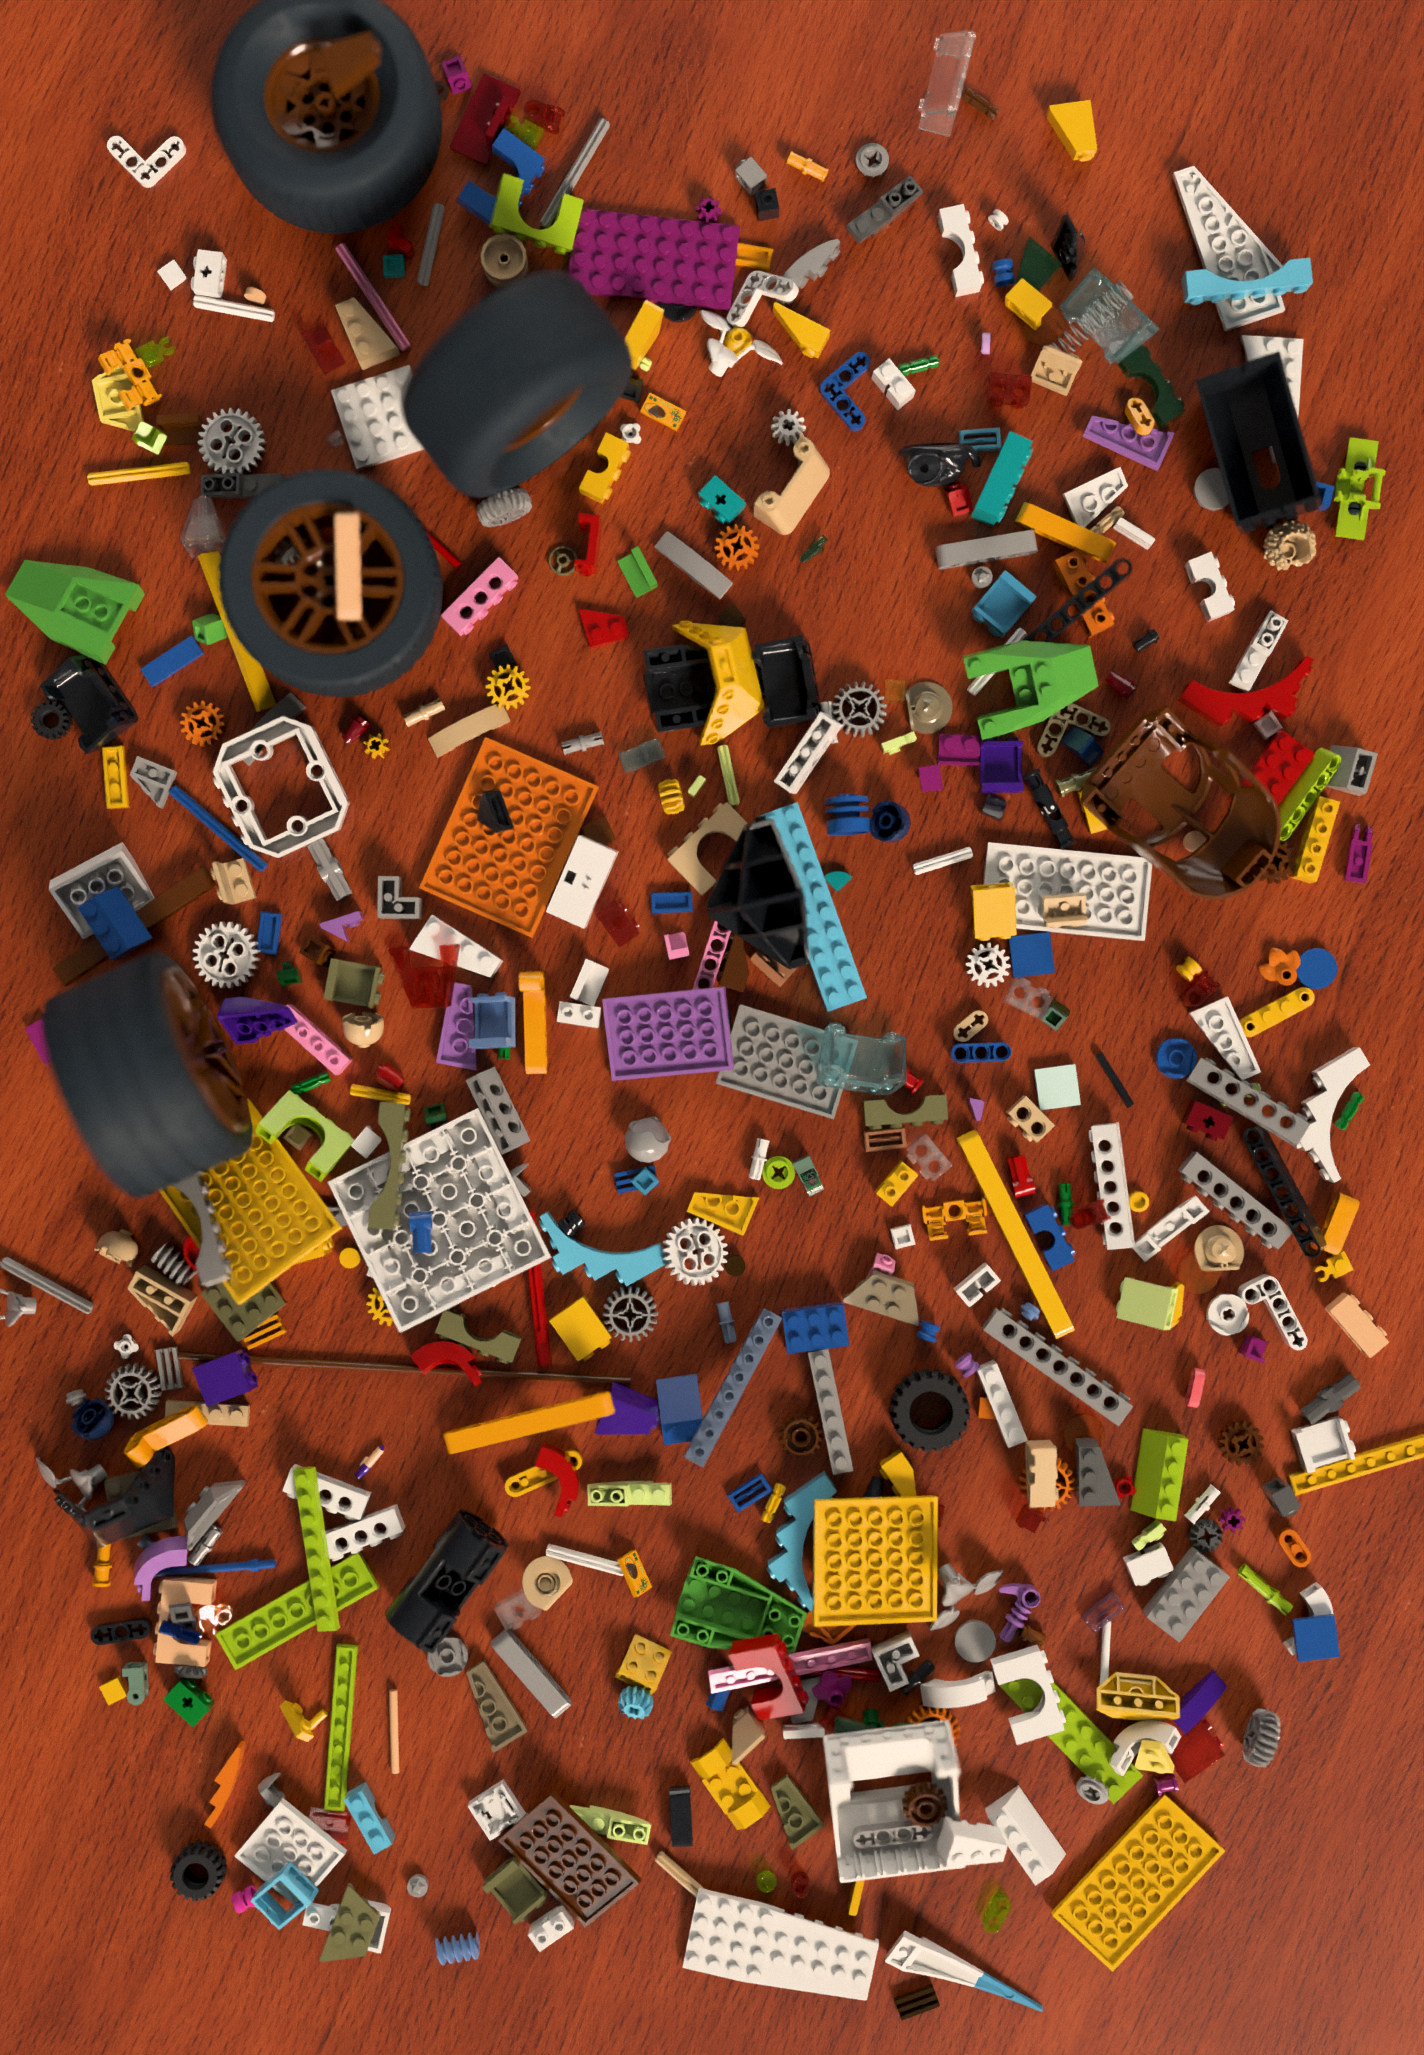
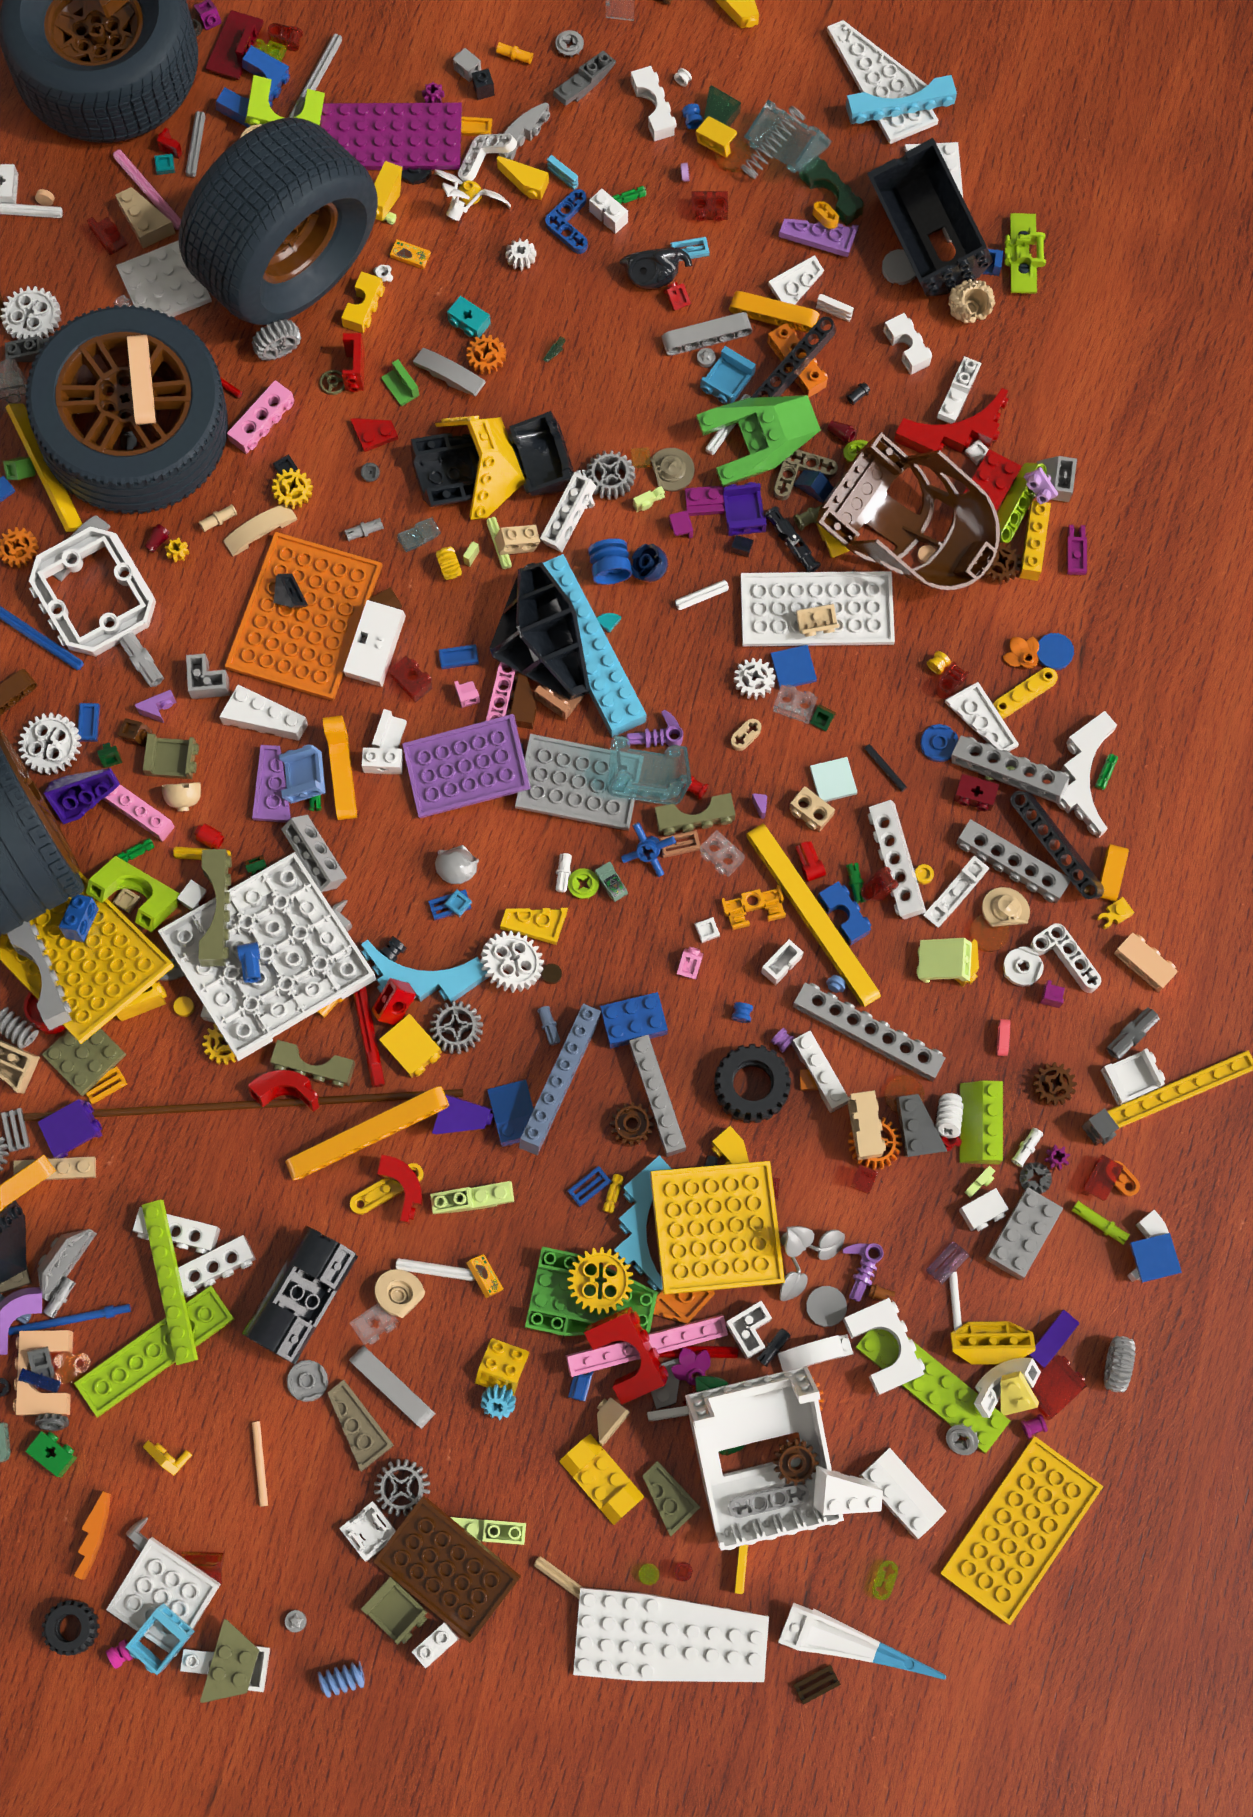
camera: 10 degrees left, 15 degrees down
(233, 881) = (53, 679): tan bracket -> none
(244, 1167) = (78, 918): none -> blue brick
(340, 1727) = (206, 1467): lime tile -> none
(367, 1463) = (214, 1199): piece -> none
(374, 1829) = (241, 1554): medium azure arch -> none
(428, 985) = (241, 748): clear red wing -> none
(527, 1765) = (394, 1495): none -> light grey gear
(567, 1284) = (393, 1001): none -> red brick
(595, 676) = (370, 472): none -> dark grey tile
(633, 390) = (380, 238): black tile -> none
(681, 1816) = (555, 1515): black beam -> none
(685, 858) = (466, 617): tan arch -> none
(732, 617) = (488, 410): dark brown tile -> none
(732, 1599) = (618, 1282): none -> yellow gear
(749, 778) = (517, 539): none -> tan brick
(785, 511) = (527, 315): tan windscreen -> none
(846, 328) = (562, 172): none -> medium azure tile
(851, 1146) = (646, 844): none -> blue bar
(878, 1020) = (659, 737): none -> medium lavender piece
(886, 1296) = (698, 984): dark tan wing -> none
(896, 1183) = (694, 879): yellow brick -> none
(990, 1052) = (750, 761): blue beam -> none
(994, 911) = (753, 629): yellow panel -> none
(1004, 474) = (712, 274): teal brick -> none
(1055, 369) = (748, 183): tan bracket -> none
(1068, 246) = (744, 86): black wedge -> none
(1108, 520) = (811, 301): tan axle -> none
(1126, 1466) = (949, 1115): none -> white piece
(1127, 707) = (851, 449): none -> lime gear
(1273, 1546) = (1102, 1178): none -> clear red panel
(1333, 783) = (1041, 485): none -> lavender hips

